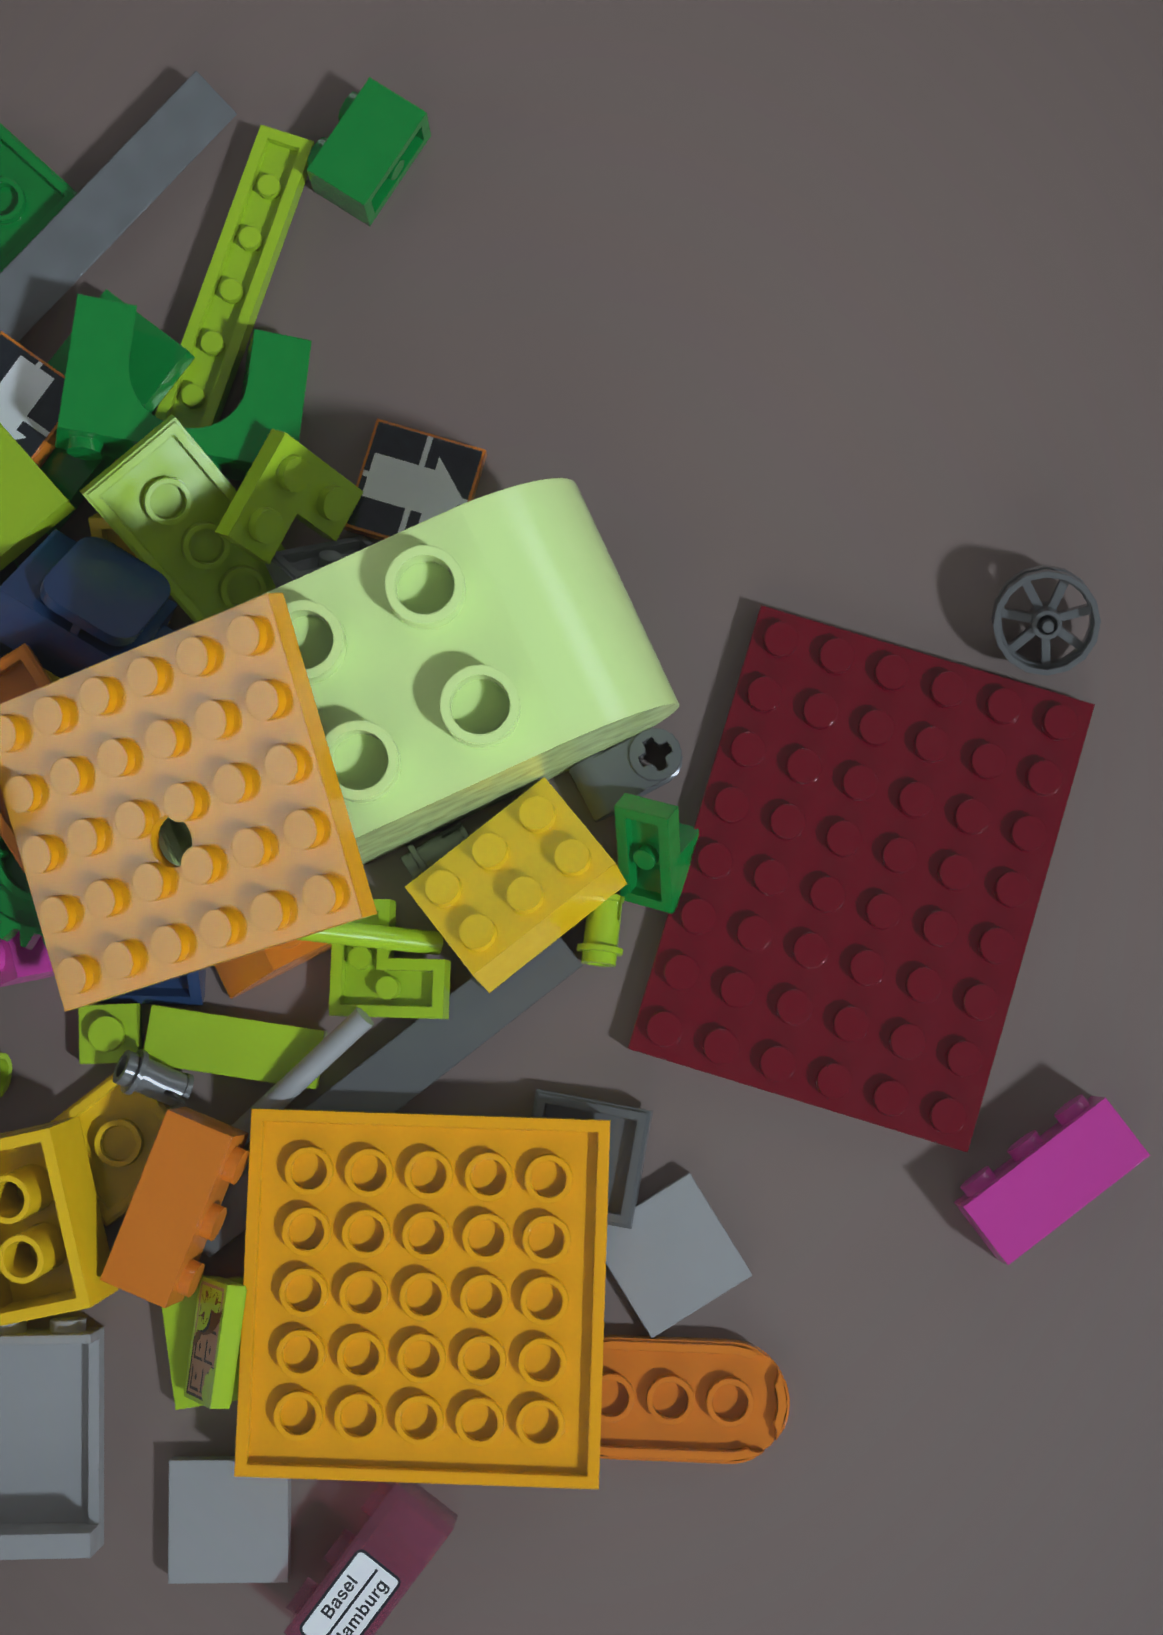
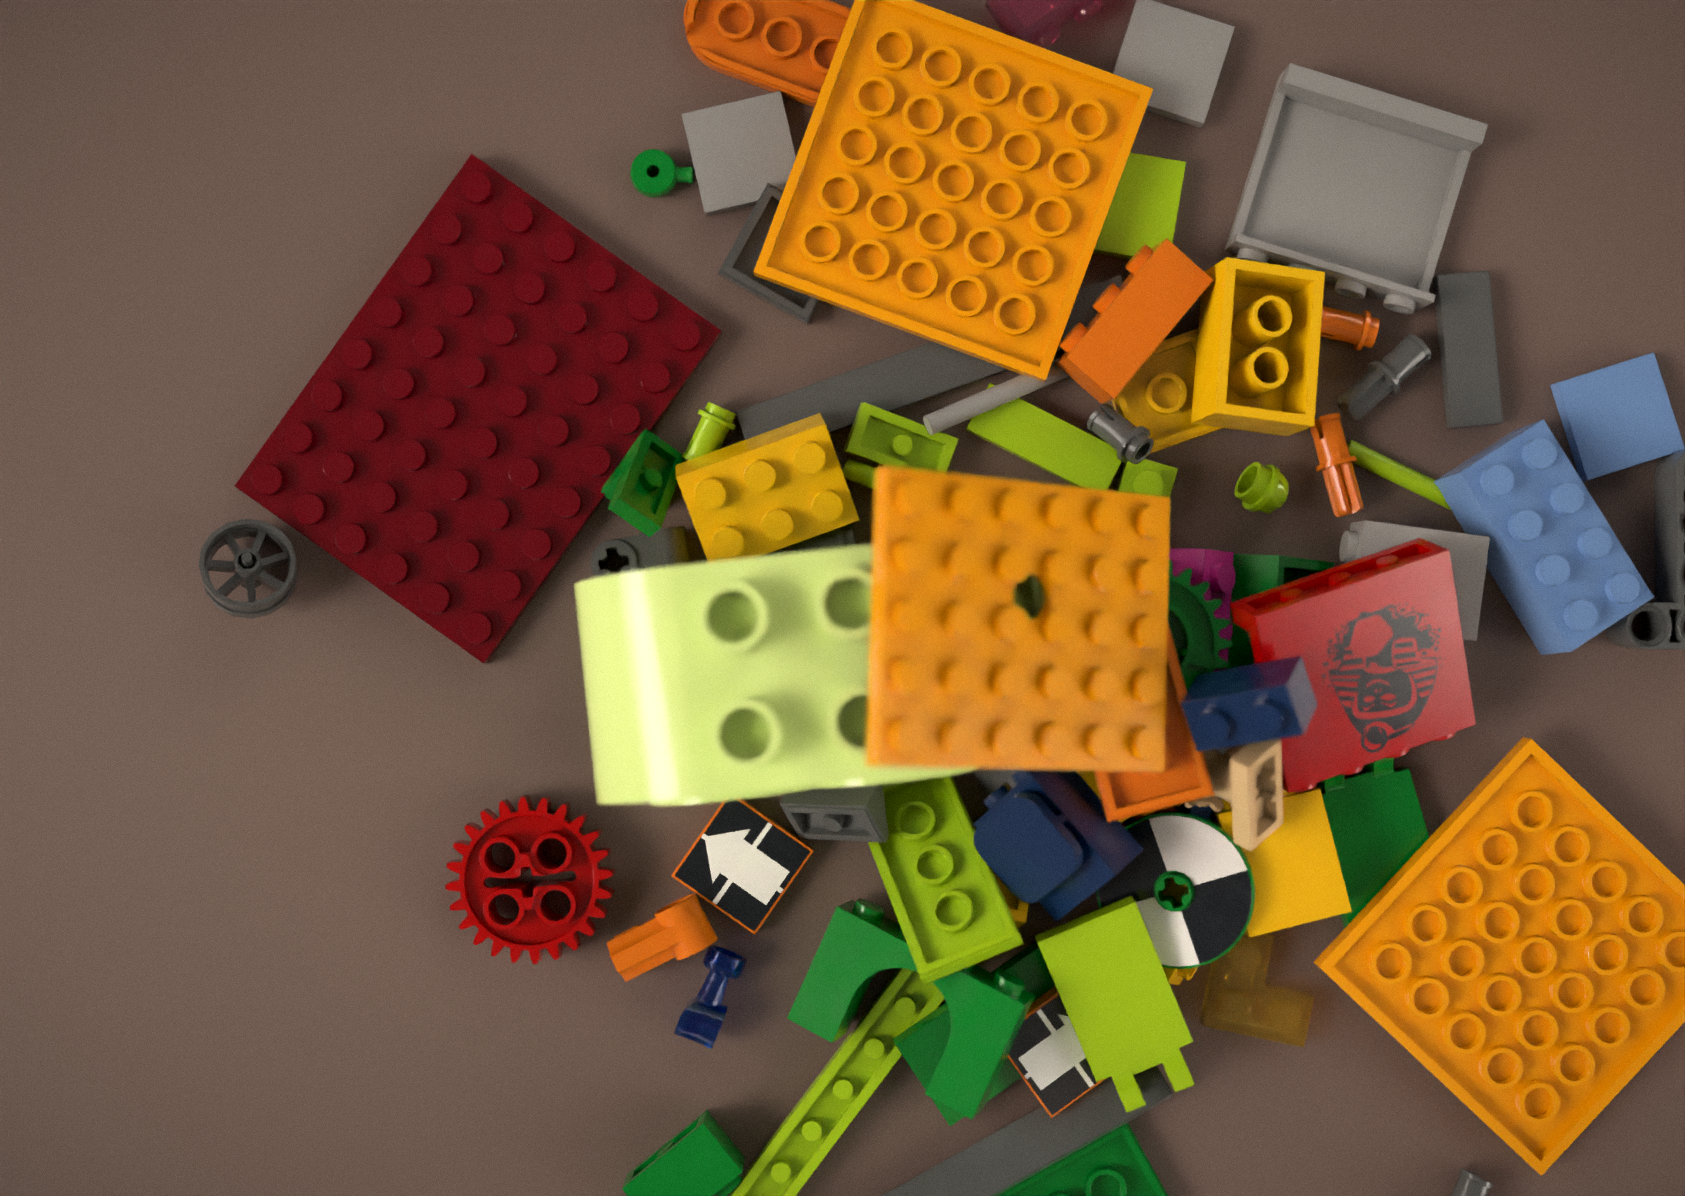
camera: 170 degrees left, 5 degrees up
(215, 1342) = (1135, 201): lime tile -> none
(284, 485) = (853, 893): lime plate -> none
(402, 319) = (705, 1013): none -> clear blue leg
(462, 393) = (674, 932): none -> orange piece
(610, 352) = (536, 924): none -> red gear
(744, 1200) = (667, 177): none -> green piece
(1050, 1176) = (410, 110): dark pink brick -> none

